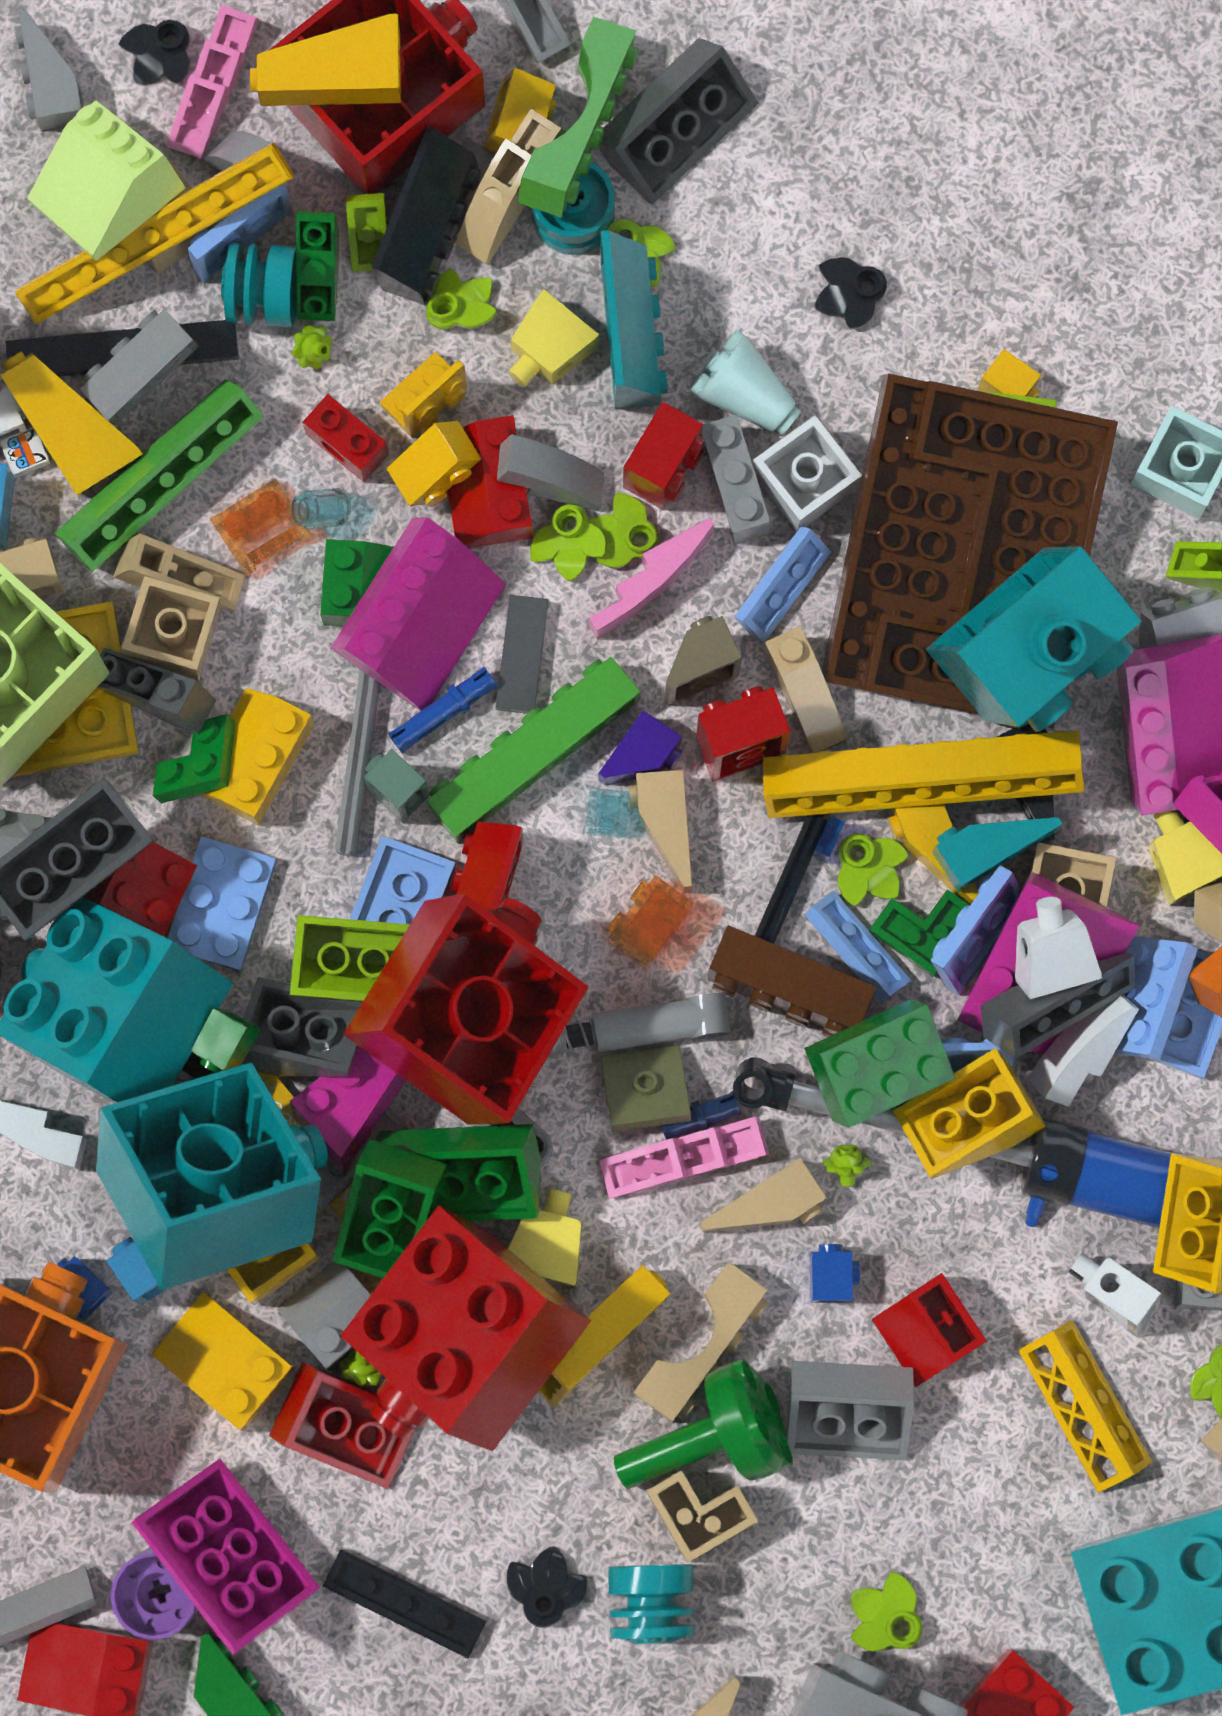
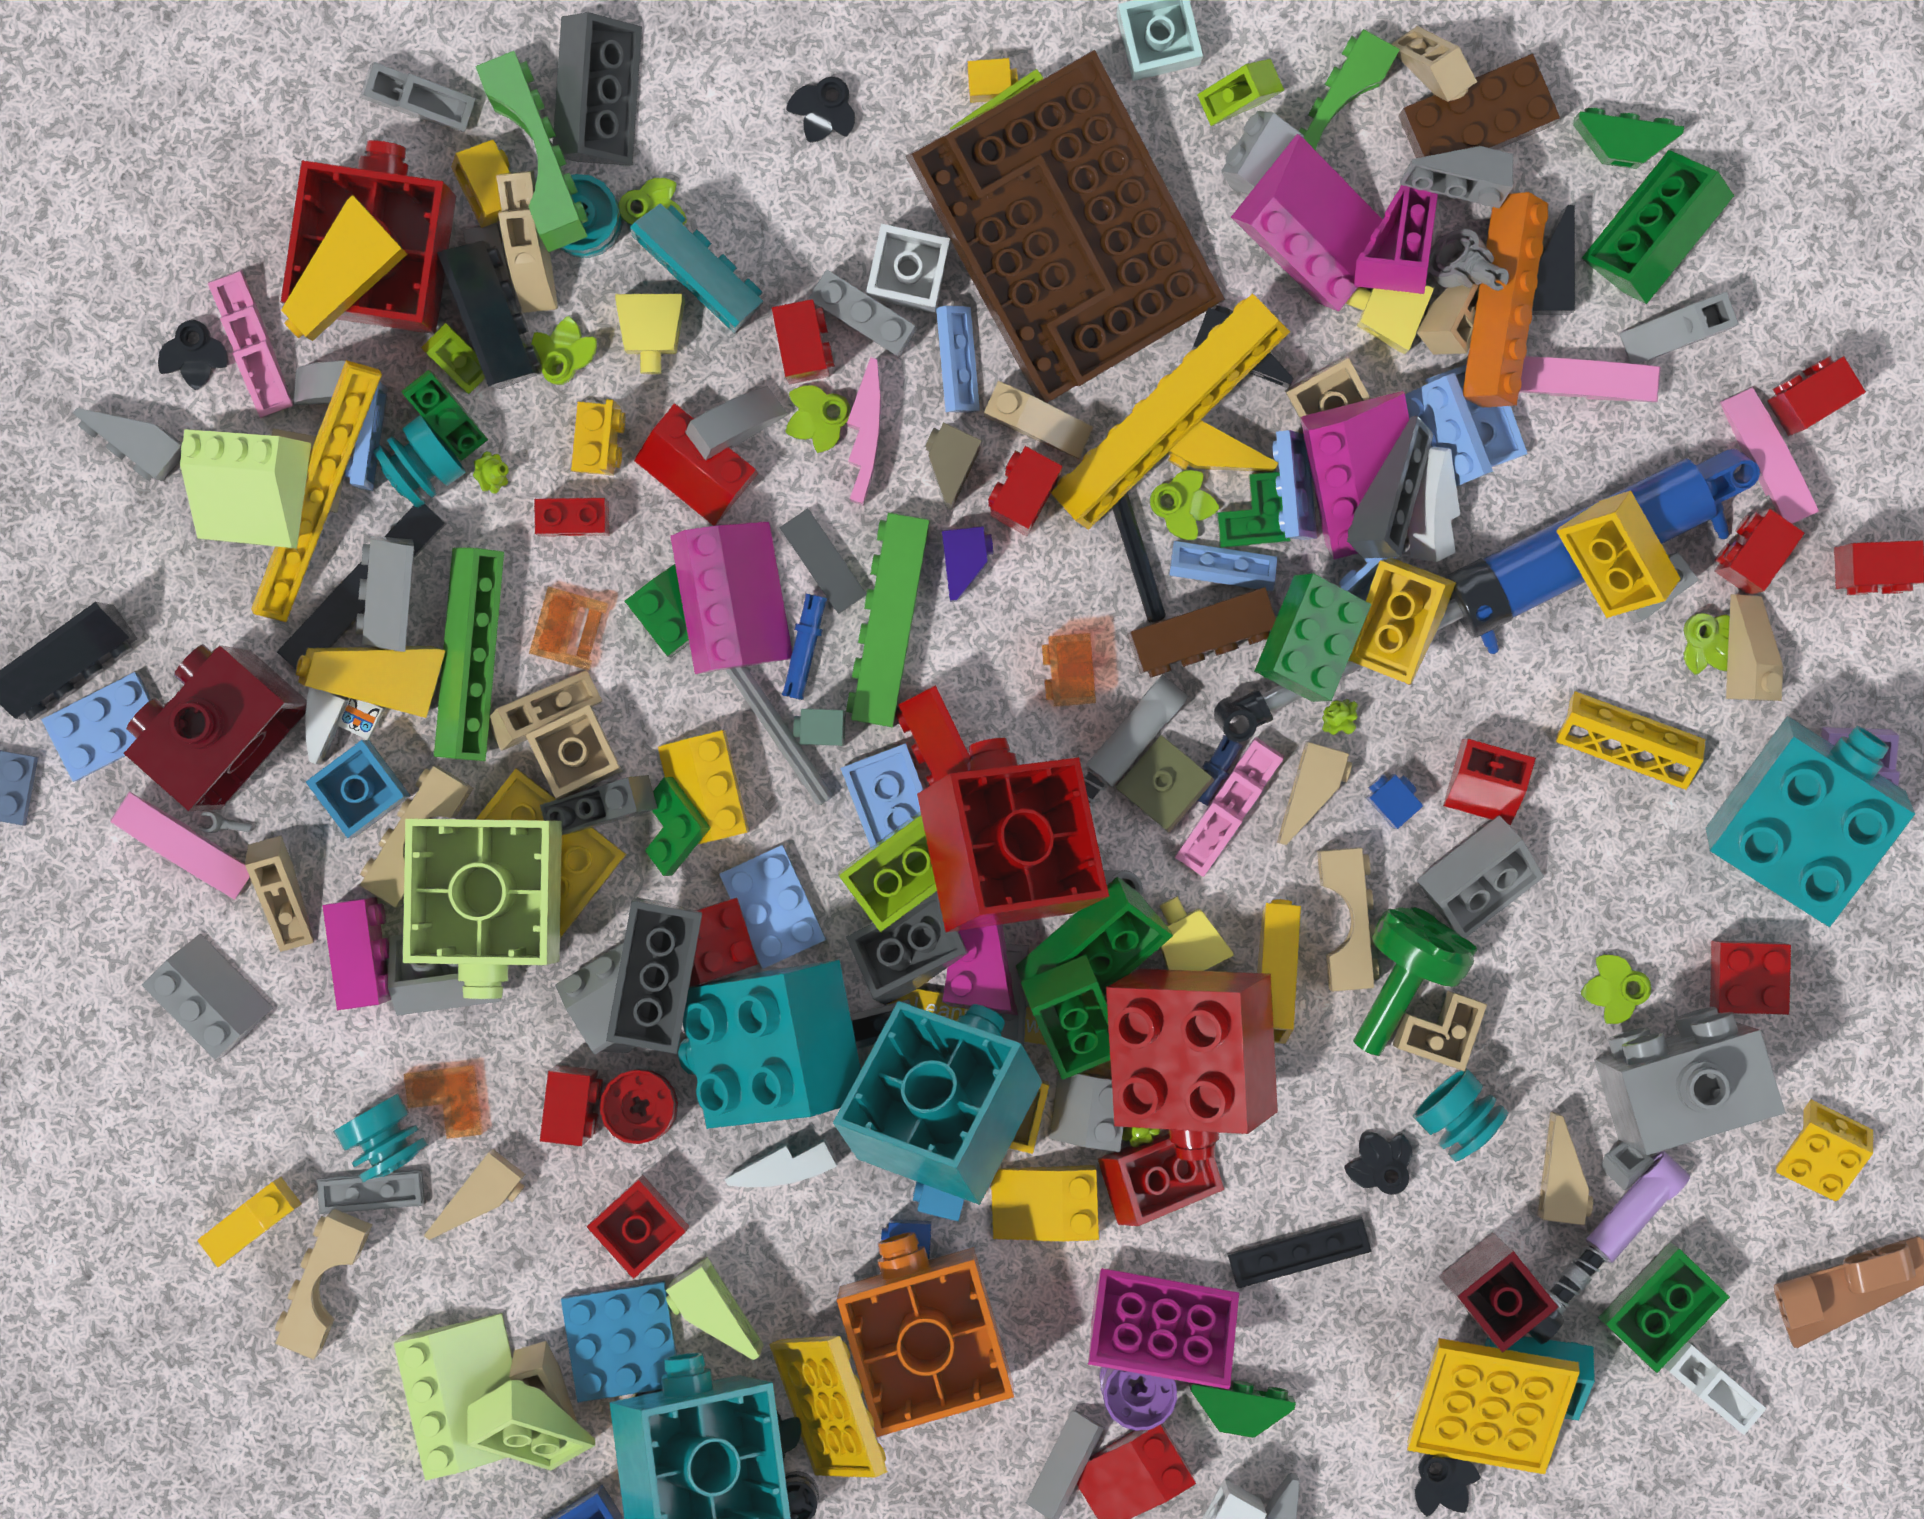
camera: 35 degrees left, 10 degrees up
(224, 1040) = (867, 1001): brick -> none
(321, 508) = (599, 581): clear light blue brick -> none
(434, 464) = (650, 484): yellow brick -> none
(566, 547) = (790, 460): lime plate -> none
(607, 813) = (978, 621): clear light blue brick -> none
(664, 817) = (1017, 589): tan slope -> none
(746, 386) = (813, 241): light aqua cone -> none
(829, 839) = (1141, 509): clear blue tile -> none
(981, 848) = (1253, 431): teal slope -> none
(1037, 637) = (1173, 256): teal brick -> none
(1053, 951) = (1366, 463): white torso -> none
(1129, 1305) = (1607, 647): white torso -> none

